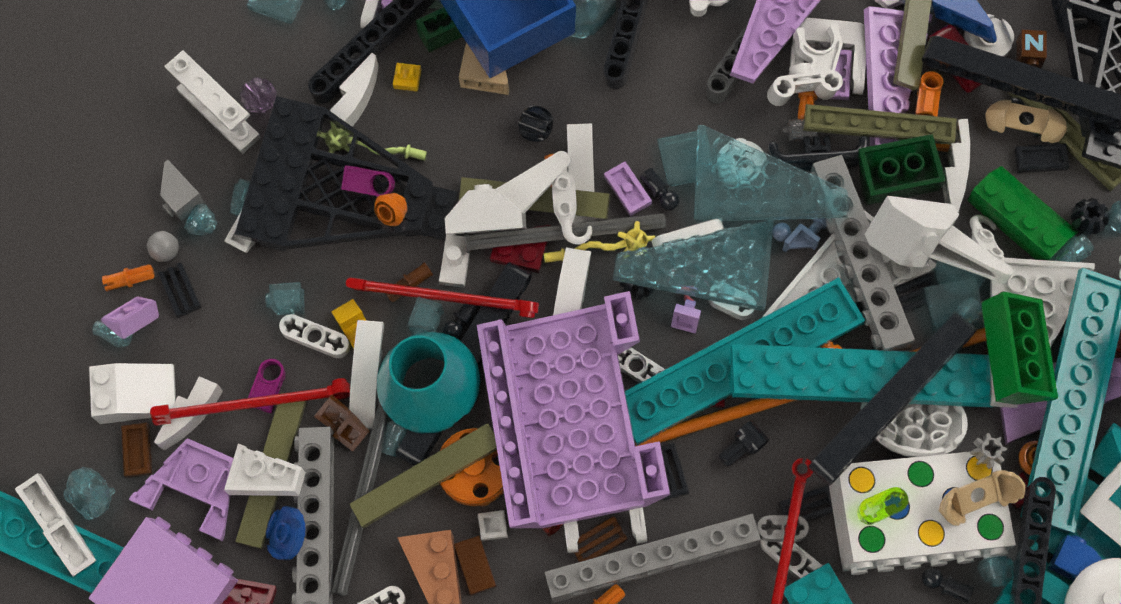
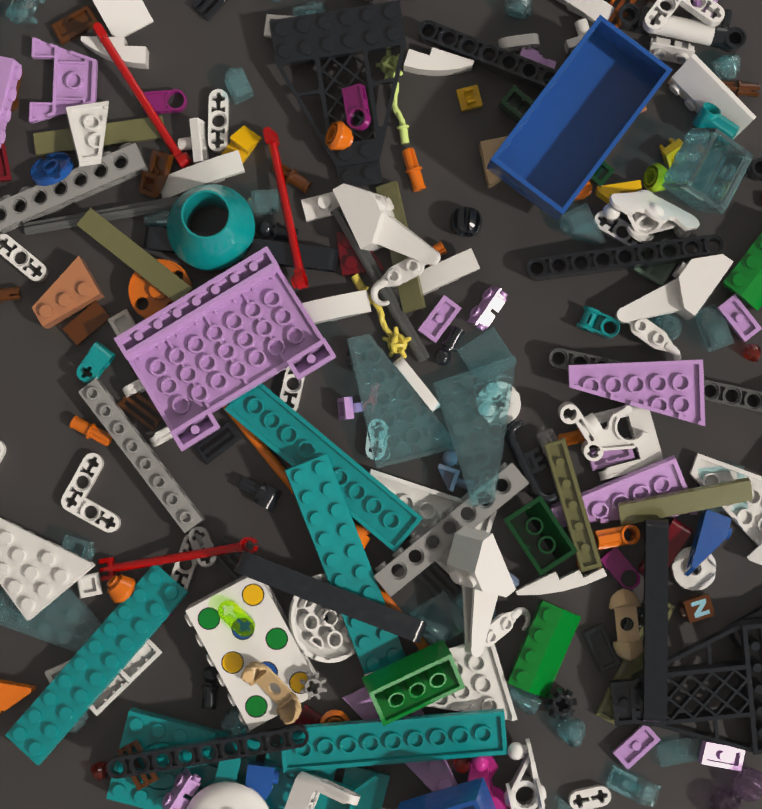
camera: 65 degrees right, 15 degrees up
(326, 367) = (197, 141): none -> white tile
(457, 156) = (413, 169): none -> orange axle
(523, 569) = (98, 359): none -> teal piece
(628, 130) = (492, 299): none -> lavender hinge
(693, 39) = (597, 322): none -> teal piece
(959, 107) = (616, 564): none -> magenta piece

